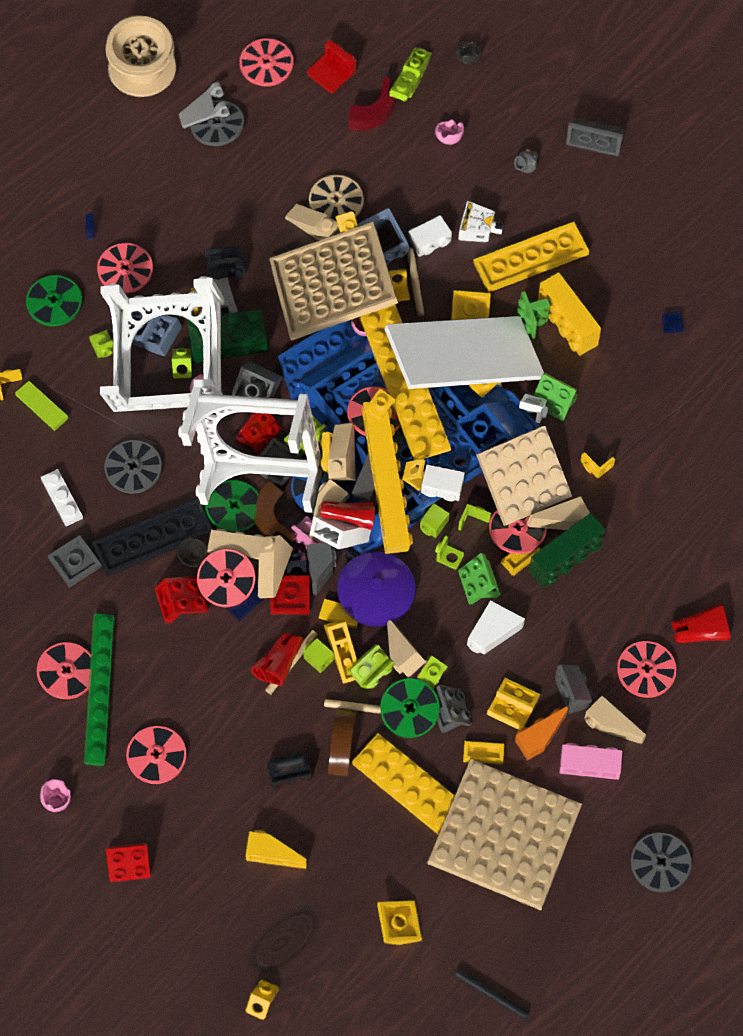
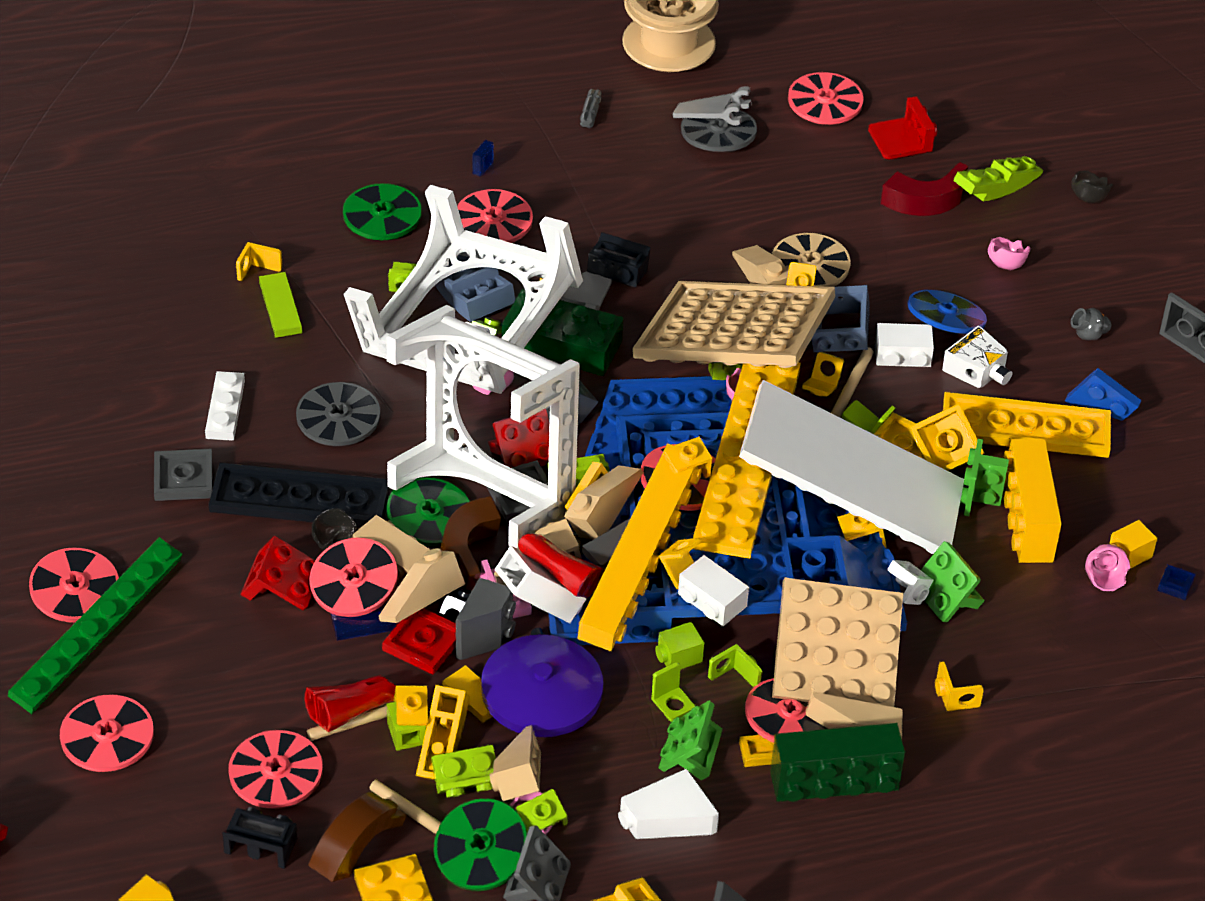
camera: 30 degrees right, 20 degrees down
(127, 148) = (590, 108): none -> dark grey axle
(259, 737) = (297, 773): none -> coral piece
(319, 646) = (411, 705): none -> yellow bracket
(440, 197) = (946, 311): none -> blue piece
(441, 304) = (864, 418): none -> lime bracket
(497, 296) = (945, 438): none -> yellow slope
(564, 213) = (1104, 393): none -> blue wing
(633, 336) = (1107, 567): none -> bright pink hair
(636, 312) = (1136, 542): none -> yellow brick

